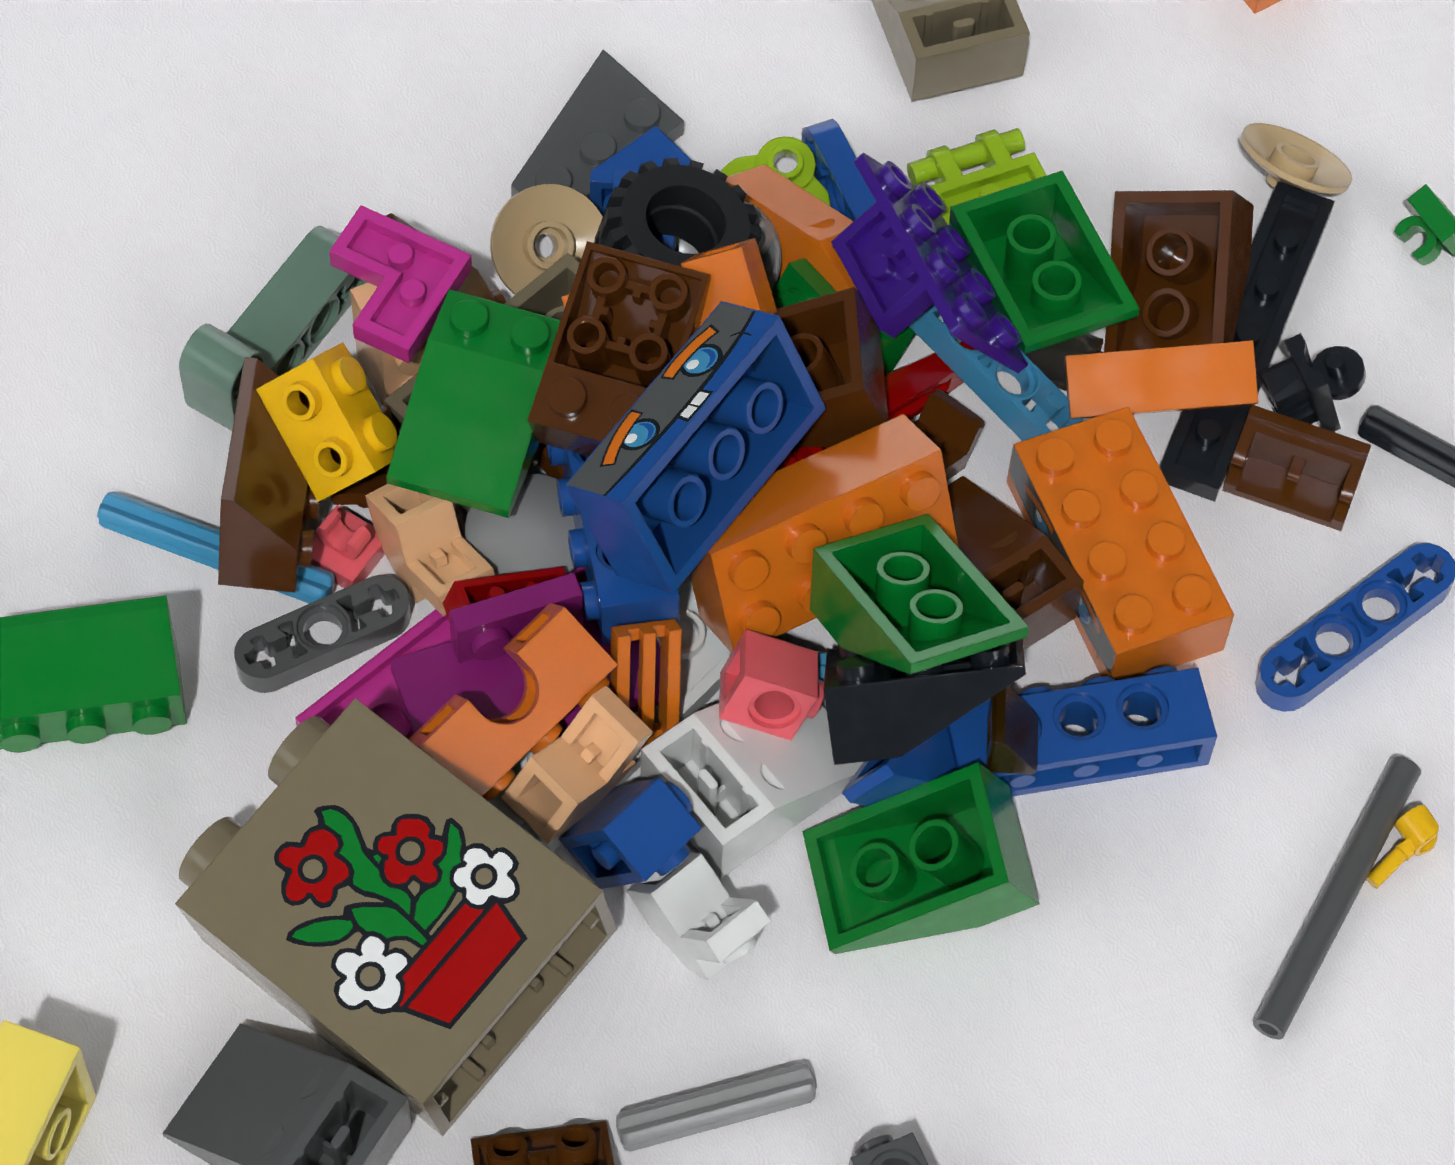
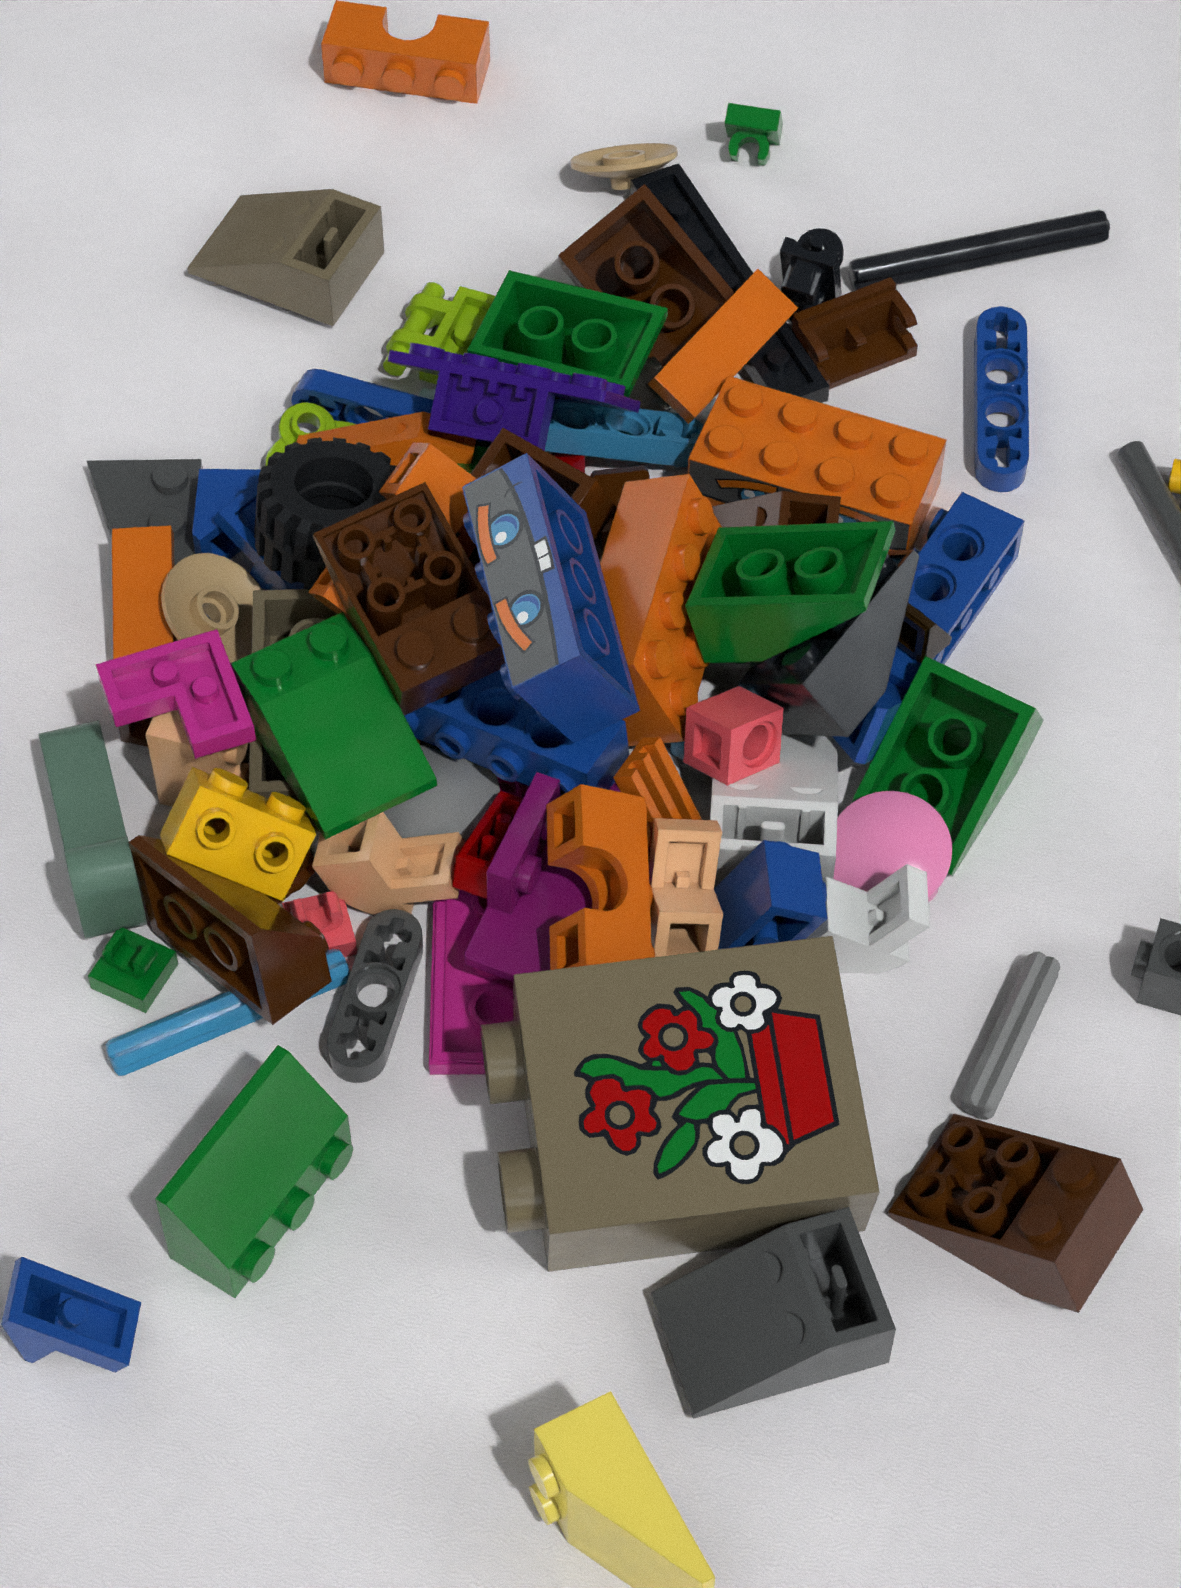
camera: 45 degrees left, 5 degrees down
(192, 456) = (133, 969): none -> green tile
(529, 160) = (138, 572): none -> orange tile
(803, 883) = (887, 833): none -> bright pink dish

